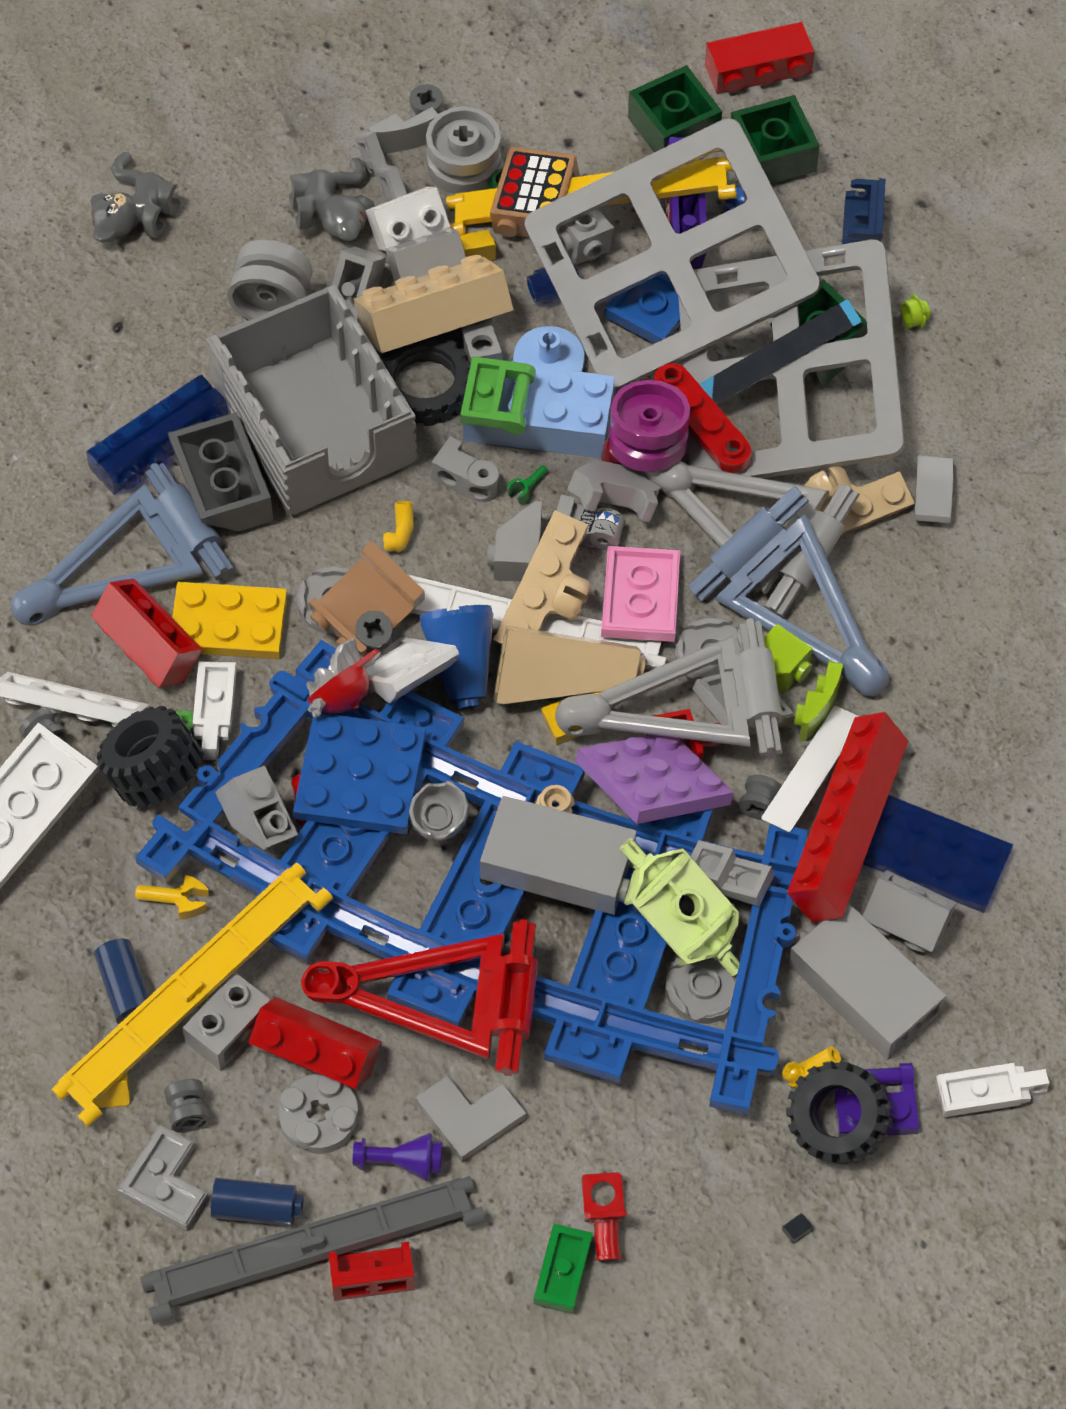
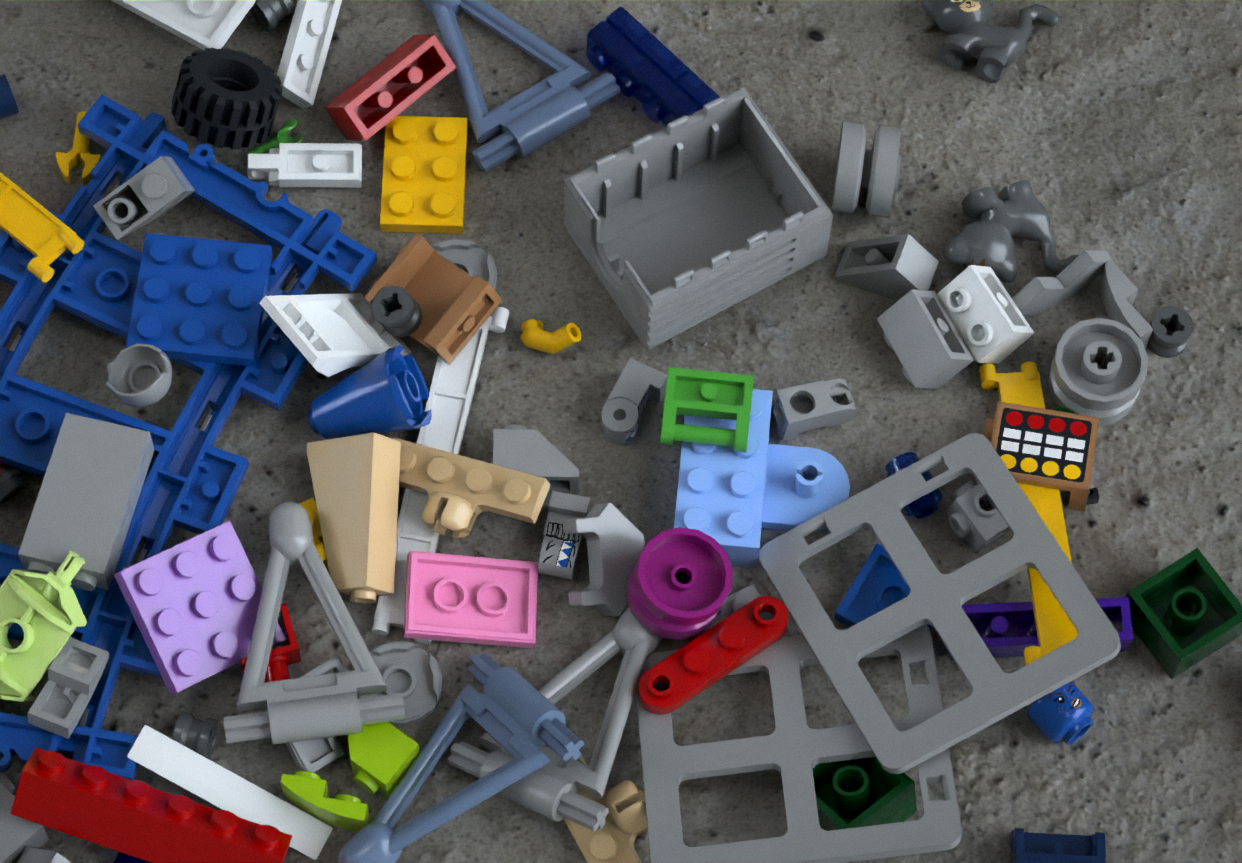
camera: 85 degrees right, 5 degrees up
(222, 474) = (589, 129): dark grey slope -> none
(342, 683) = (300, 265): red hair -> none
(433, 303) = (851, 344): tan brick -> none
(437, 351) = (772, 315): black tyre -> none
(480, 244) = (964, 399): yellow slope -> none
(525, 485) = (618, 470): green hand -> none
(557, 794) = (157, 488): tan plate -> none
(780, 138) = (1155, 735): dark green brick -> none
(781, 352) = (804, 737): black sticker -> none

